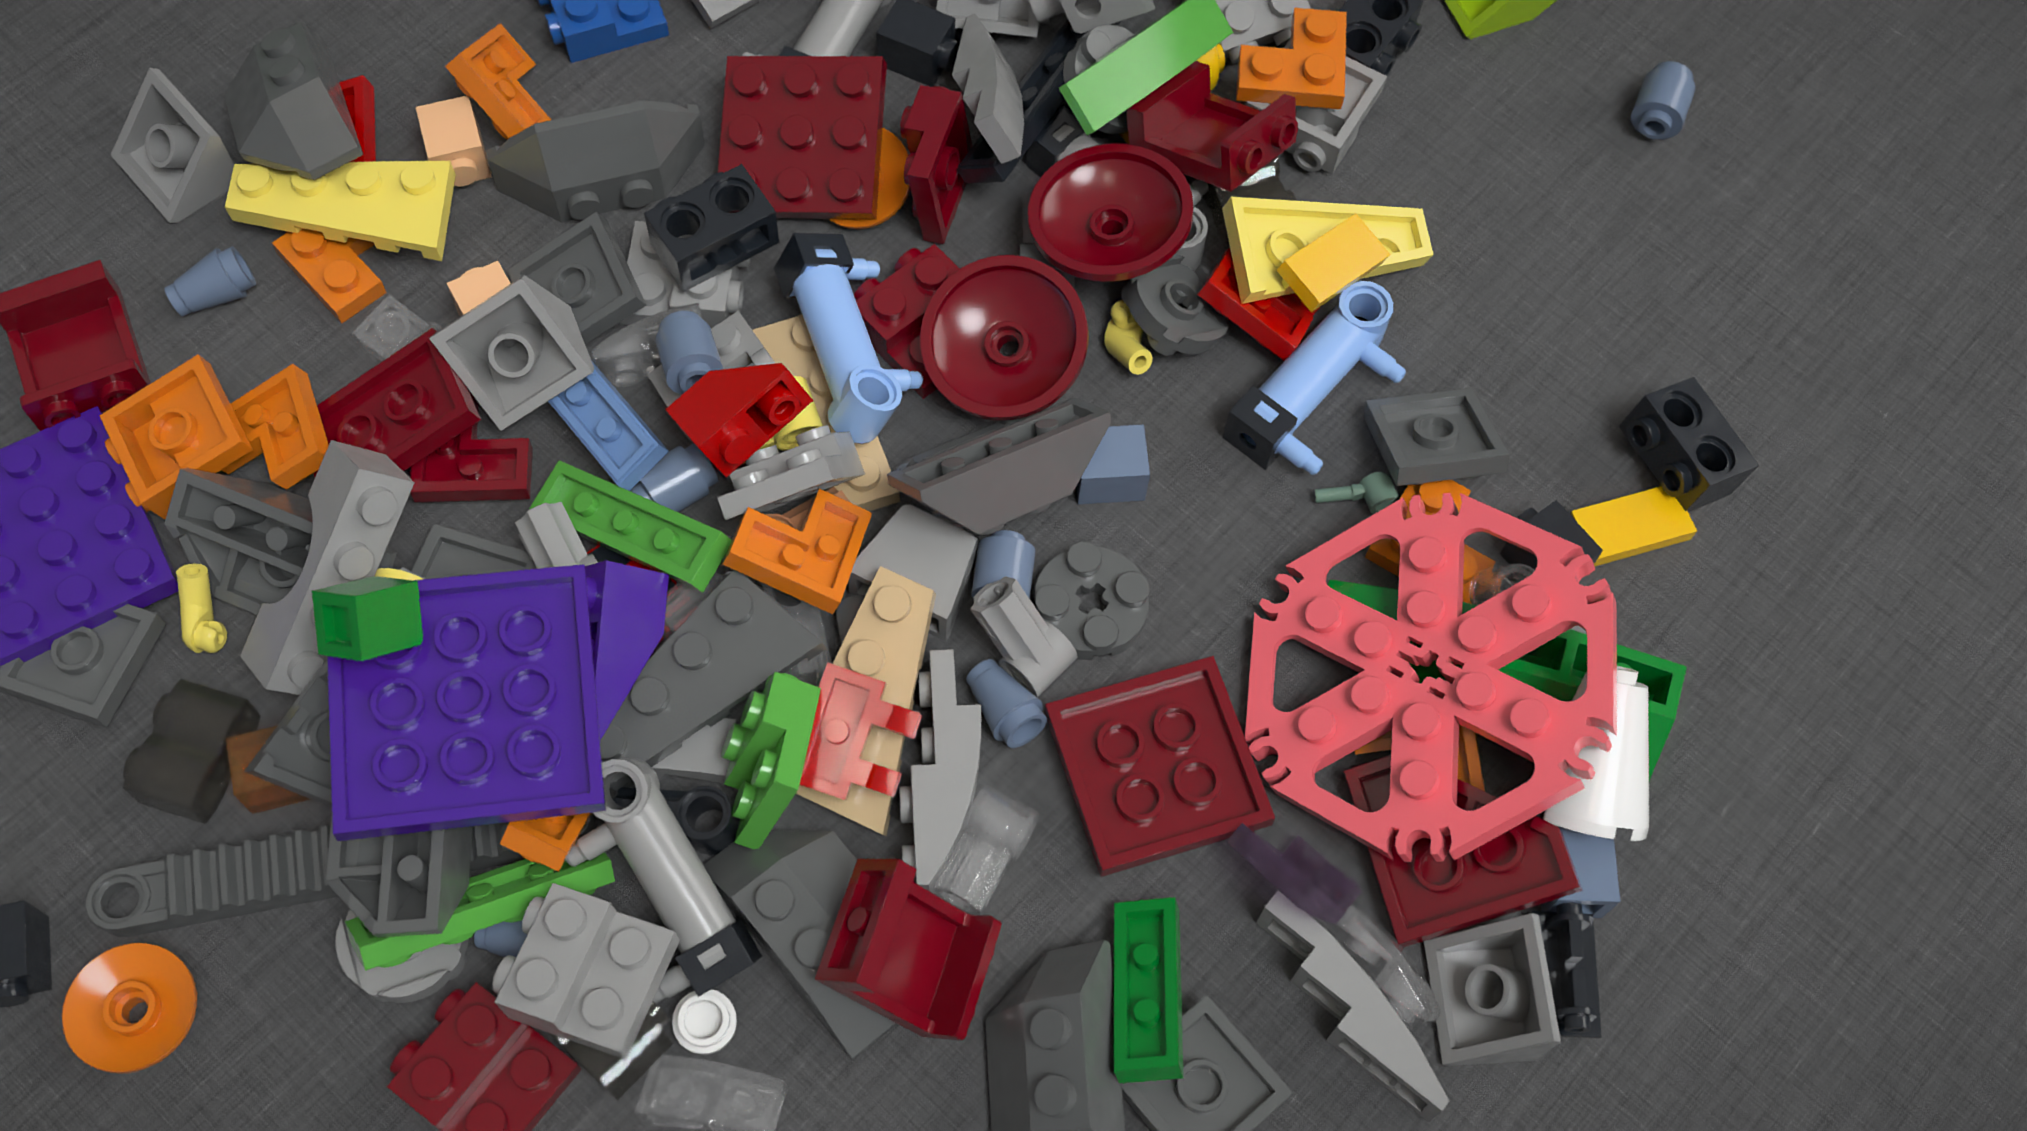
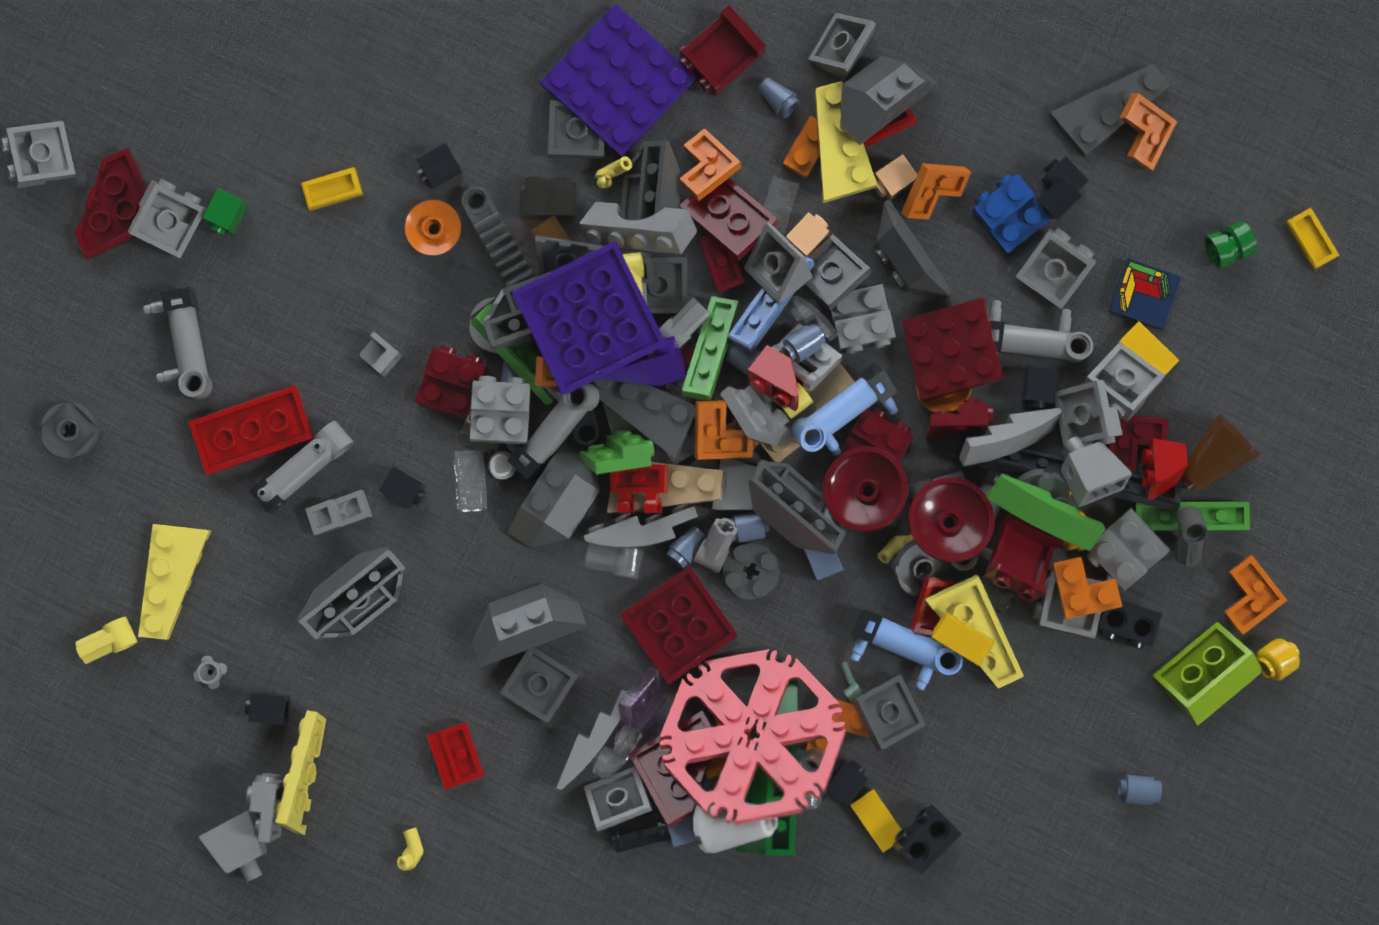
camera: 80 degrees right, 20 degrees up
(173, 426) = (689, 123): orange plate -> none
(367, 617) = (604, 267): green panel -> none
(717, 236) = (871, 334): black brick -> none
(908, 951) = (553, 542): dark red panel -> none
(1147, 991) = (571, 649): green plate -> none

